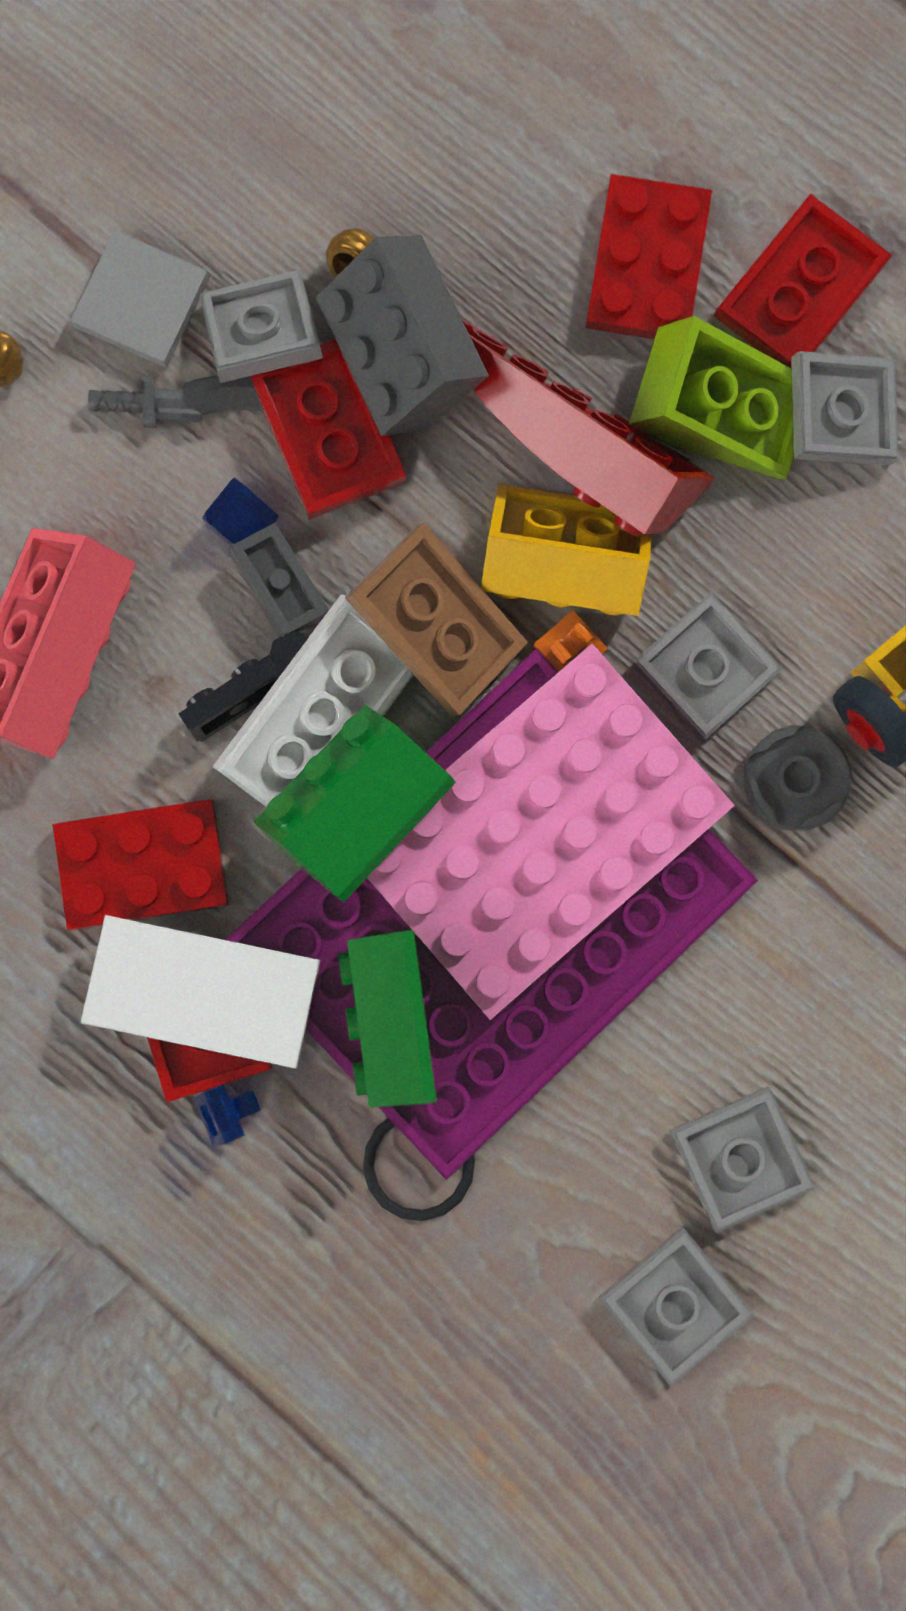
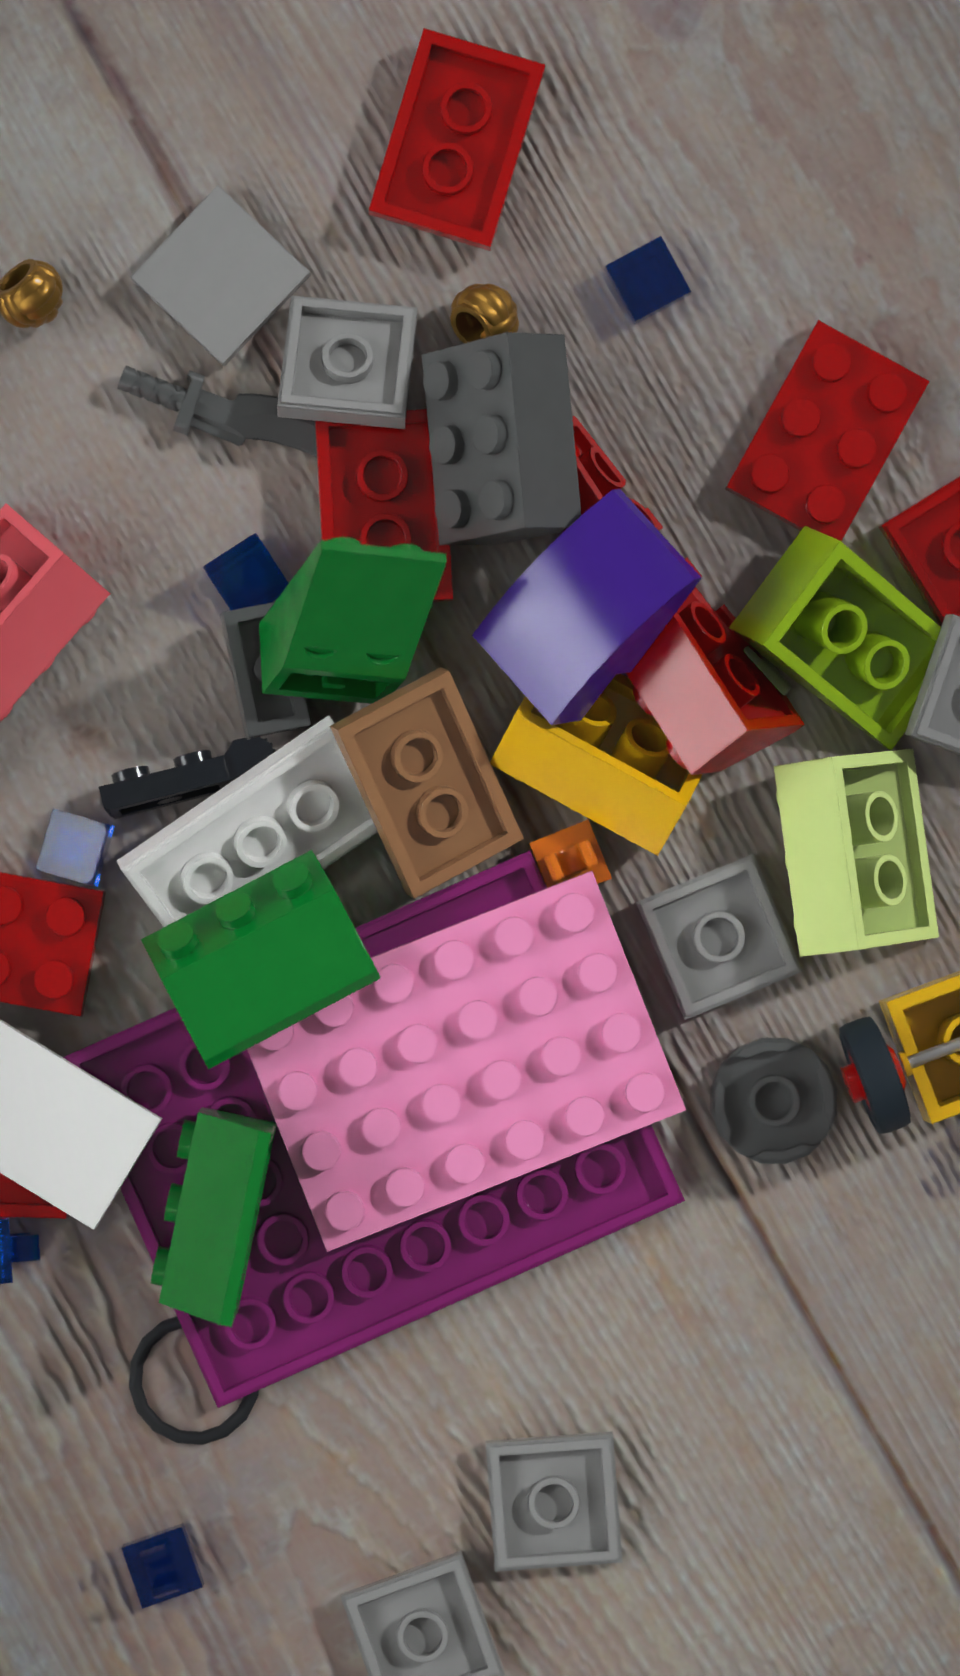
camera: 25 degrees right, 5 degrees up
(177, 773) = (75, 847): none -> clear blue slope
(285, 134) = (457, 139): none -> red plate
(331, 506) = (349, 621): none -> green slope
(446, 1325) = (162, 1565): none -> clear blue tile
(469, 190) = (647, 280): none -> clear blue tile
(516, 434) = (587, 608): none -> dark purple slope
(789, 561) = (856, 852): none -> yellowish green slope

